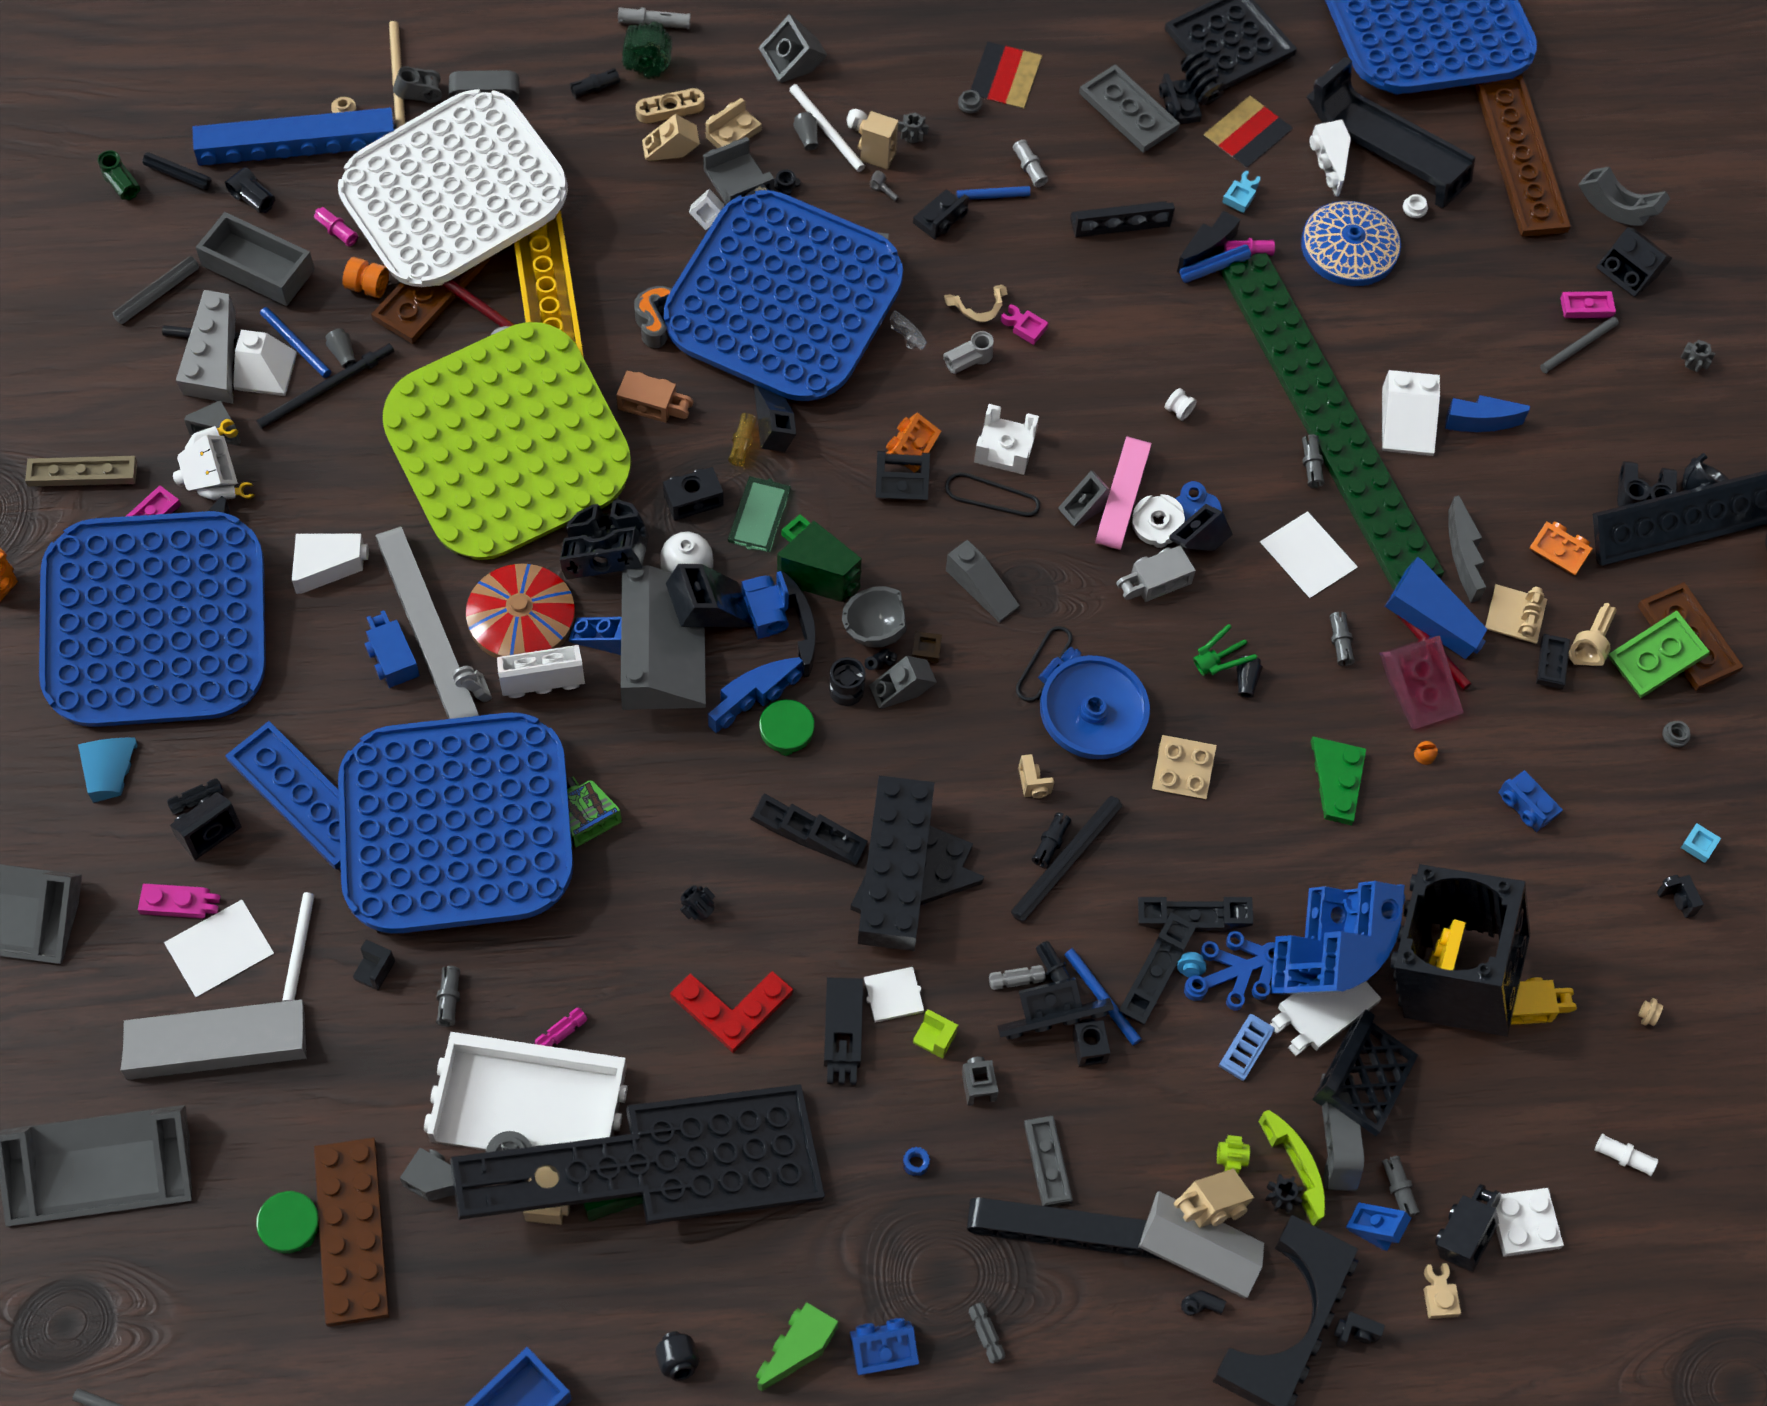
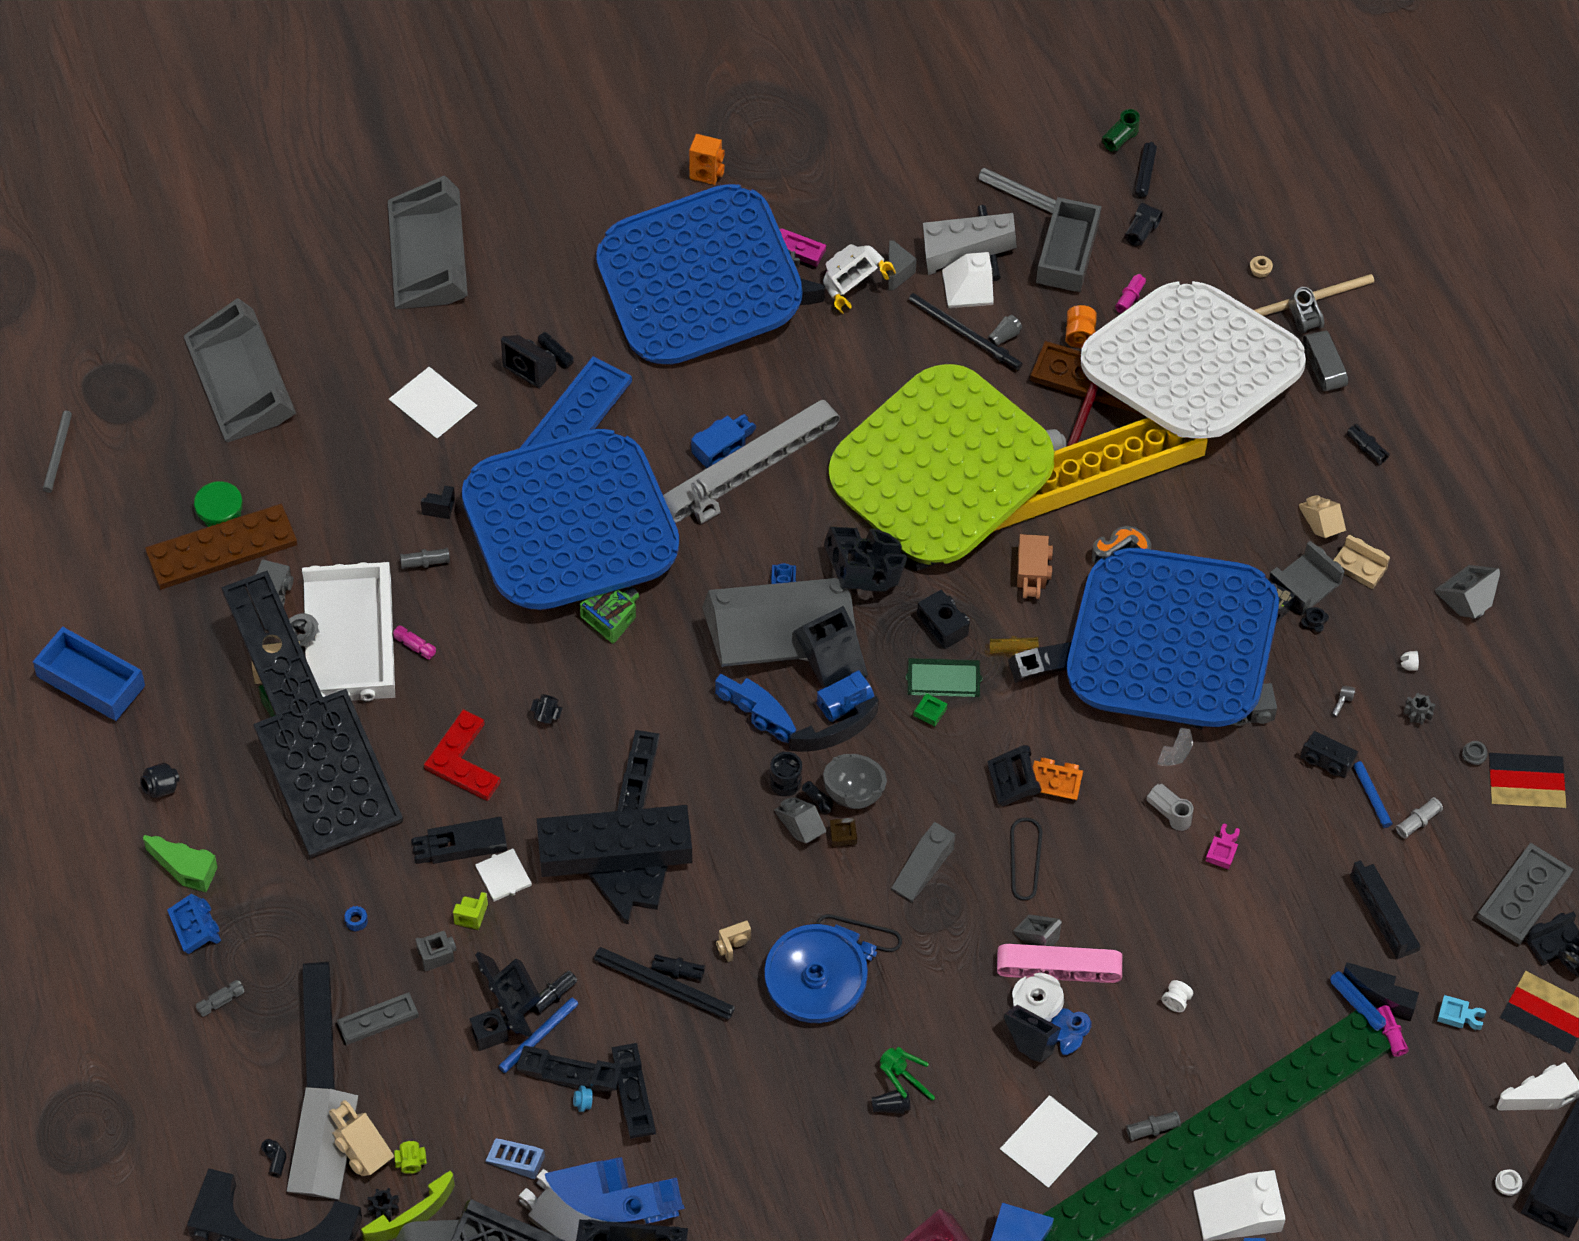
camera: 80 degrees right, 5 degrees down
(81, 471) = (824, 192): dark tan plate -> none
(105, 766) = (564, 285): dark azure slope -> none
(177, 901) = (463, 363): dark pink hinge -> none
(213, 1039) = (355, 419): light grey arch -> none
(290, 136) = (1211, 236): blue brick -> none
(295, 342) = (1002, 298): blue bar -> none
(298, 947) = (443, 451): white bar -> none
(326, 558) = (792, 373): white slope -> none
(520, 611) = (786, 523): dish -> none
(540, 671) = (727, 544): white slope -> none
(644, 16) = (1461, 463): light grey pin -> none
(647, 49) = (1415, 470): clear green brick -> none
(676, 97) = (1366, 498): tan beam -> none
(685, 549) = (877, 630): white cylinder -> none
(706, 209) = (1257, 559): white panel -> none
(786, 726) = (732, 740): green tile -> none
(806, 128) = (1383, 621): dark grey cone -> none
(821, 564) = (898, 725): dark green slope -> none
(827, 128) = (1394, 640): white piece -> none
(878, 139) = (1384, 678): tan brick -> none
(999, 291) = (1228, 782): tan helmet -> none
(1006, 442) = (1083, 856): white panel -> none
(1017, 977) = (539, 963): light grey axle -> none
(1158, 575) = (976, 1006): light grey brick -> none
(1184, 767) = (780, 1062): tan hinge -> none
(1238, 968) = (589, 1140): blue plant -> none
(1339, 777) = (807, 1199): green wing -> none
(1342, 639) = (958, 1180): dark grey pin -> none
(1350, 243) = (1438, 1127): blue dish -> none

